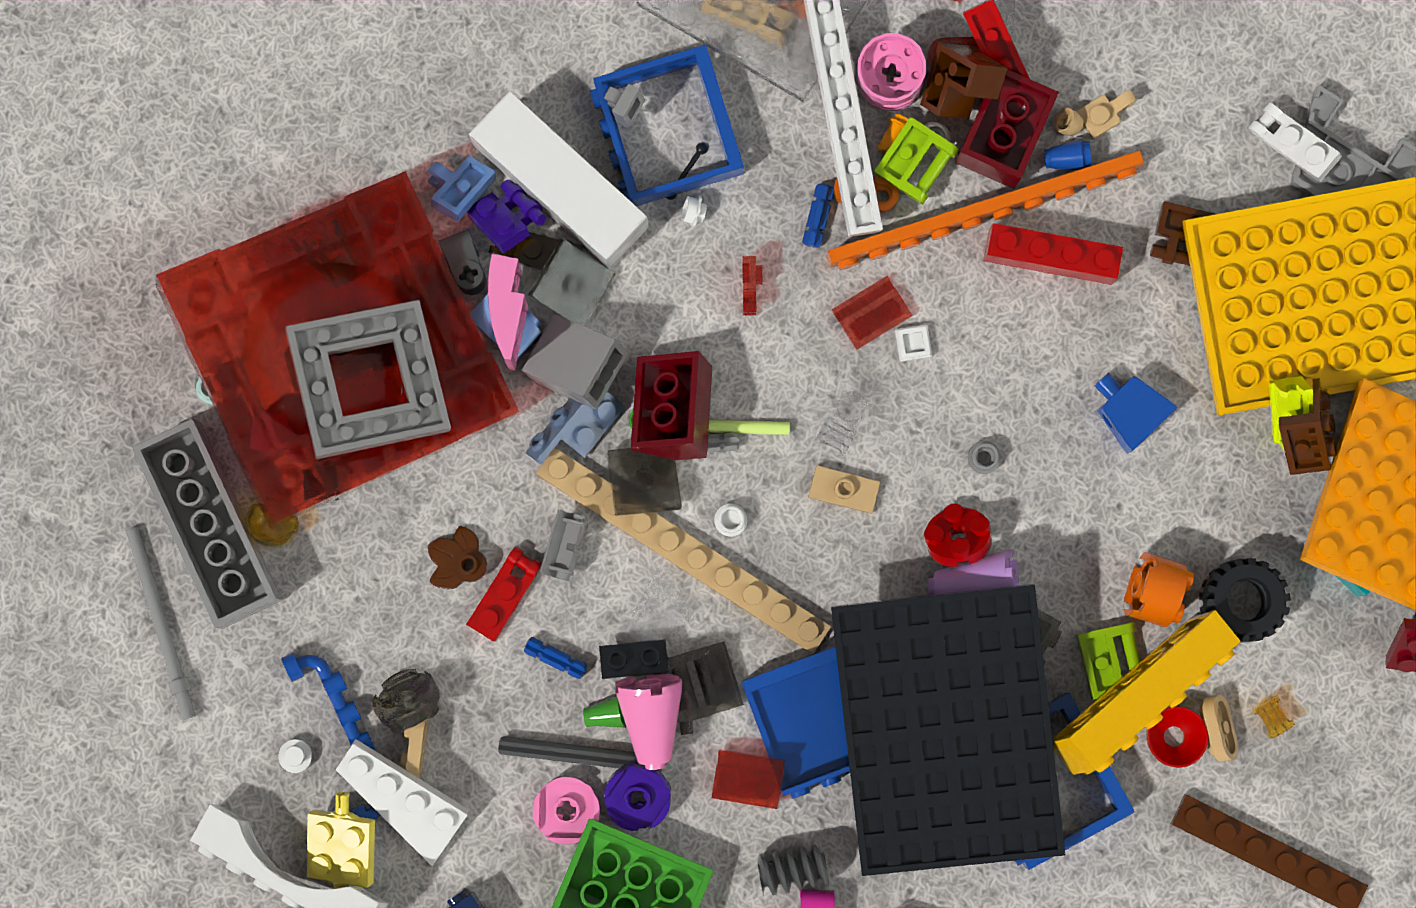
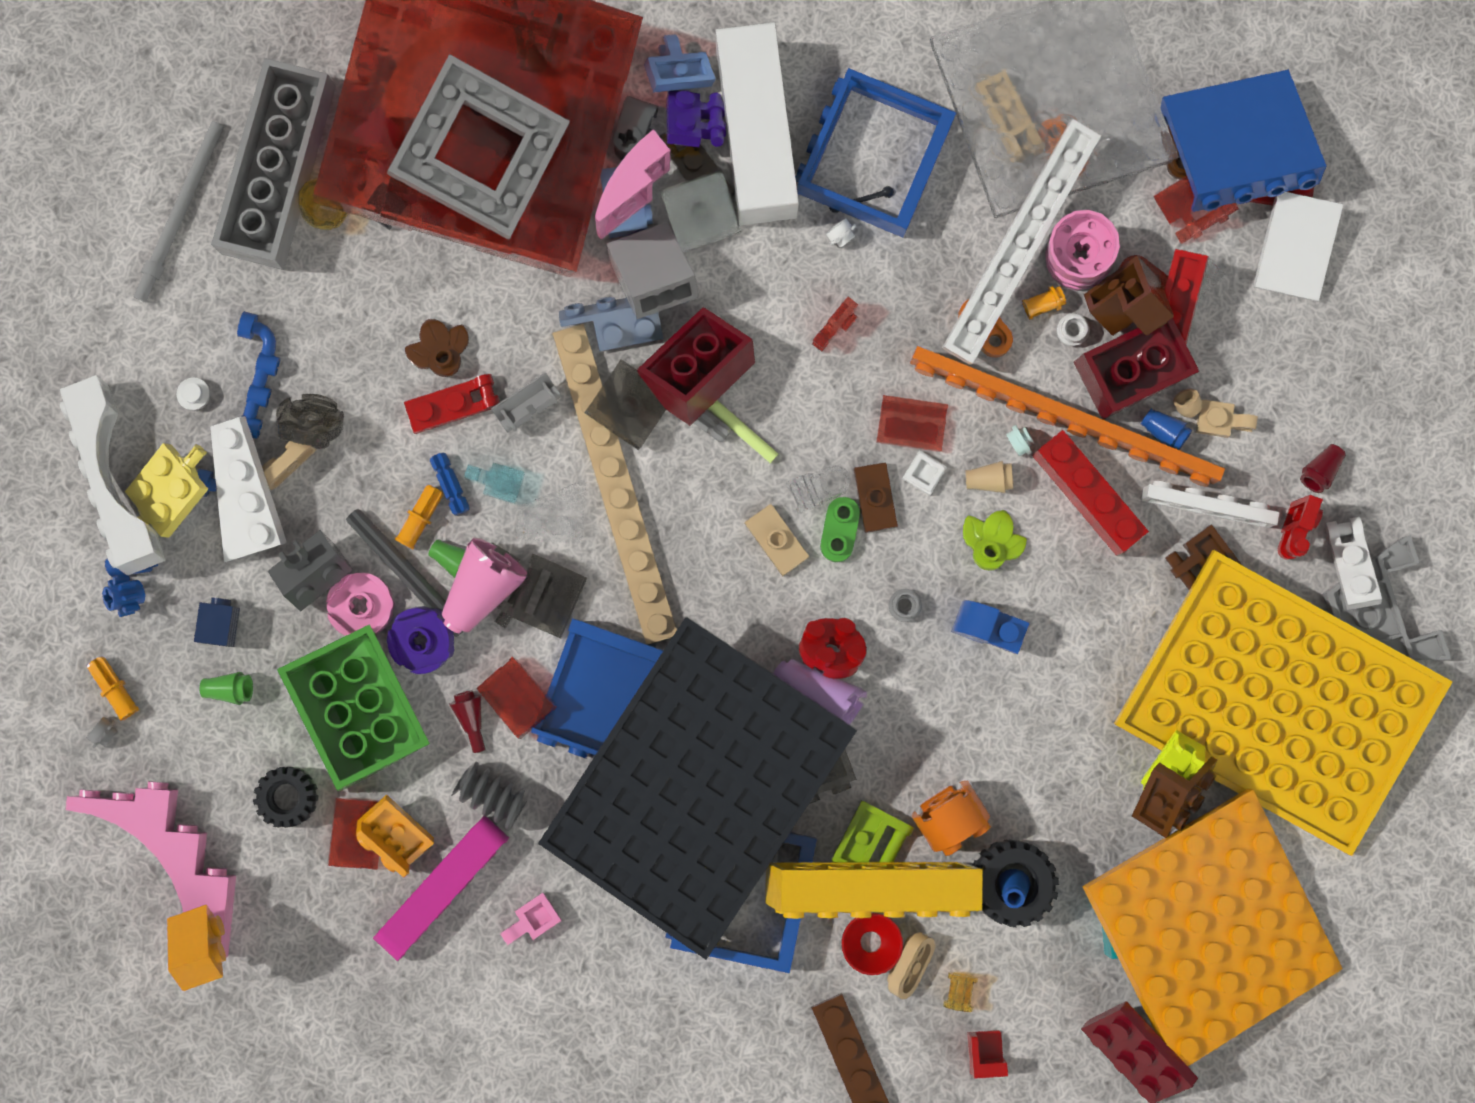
camera: 35 degrees right, 0 degrees up
(506, 816) = (309, 570): none -> dark grey brick
(554, 702) = (419, 516): none -> light orange axle
(594, 622) = (500, 482): none -> clear light blue plate
(625, 104) = (855, 105): light grey tile -> none
(633, 659) = (506, 533): black hinge -> none
(720, 821) = (468, 712): none -> dark red cone
(730, 520) = (670, 490): white plate -> none
(818, 215) = (933, 315): blue axle -> none
(885, 441) = (839, 529): none -> bright green plate
(892, 393) = (875, 497): none -> reddish brown plate
(906, 155) = (1040, 323): lime plate -> none
(966, 257) = (1020, 440): none -> light aqua plate
(967, 304) = (992, 477): none -> tan cone
(1008, 346) = (993, 534): none -> lime plate
(1063, 420) = (990, 626): none -> blue brick
(1132, 410) = (1050, 663): blue torso -> none
(1161, 180) = (1222, 507): none -> white plate
(1212, 88) = (1323, 469): none -> dark red cone
(1228, 143) = (1301, 518): none -> red plate
(1248, 604) = (1013, 887): none -> blue cone
(1332, 747) = (986, 1054): none -> red panel

